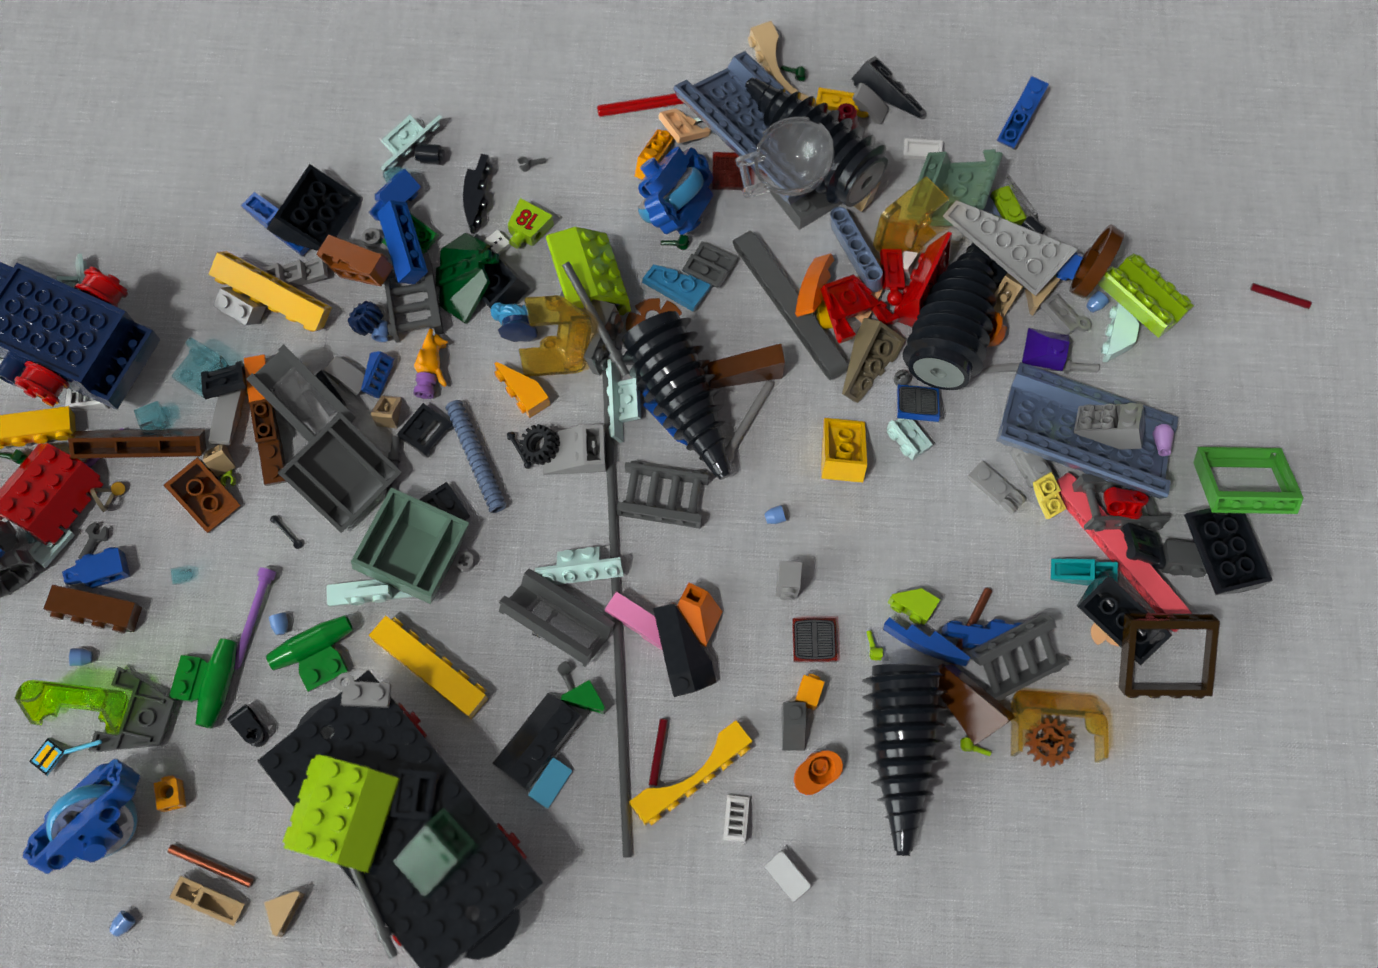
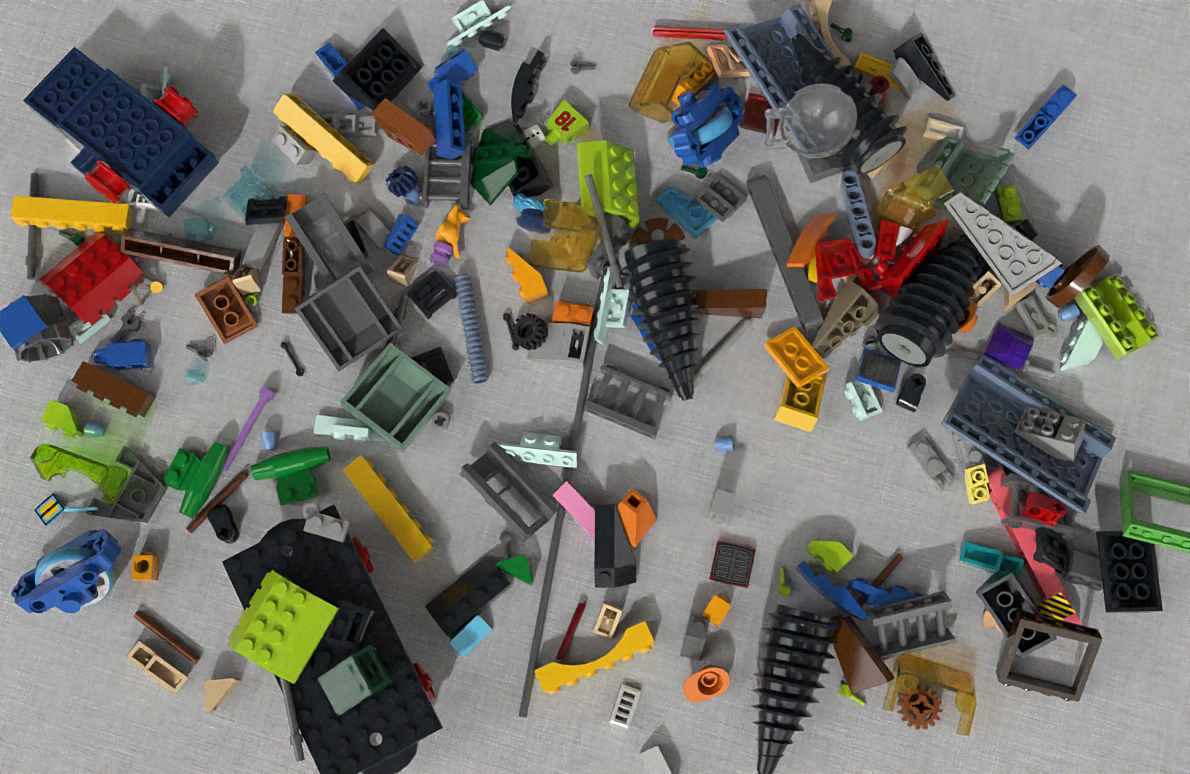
camera: 15 degrees right, 5 degrees up
(40, 651) = (62, 417): none -> lime slope
(122, 923) = (83, 668): medium blue hose -> none
(184, 546) = (201, 352): none -> dark grey hand
(235, 705) = (217, 502): none -> copper bar
(576, 415) = (571, 313): none -> orange brick
(618, 156) = (661, 79): none -> clear yellow windscreen
(696, 729) = (608, 620): none -> tan slope
(829, 408) = (796, 357): none -> light orange plate
(957, 421) = (910, 396): none -> black piece
(1163, 439) = (1096, 455): lavender cone -> none
(1164, 601) = (1056, 607): none -> sticker

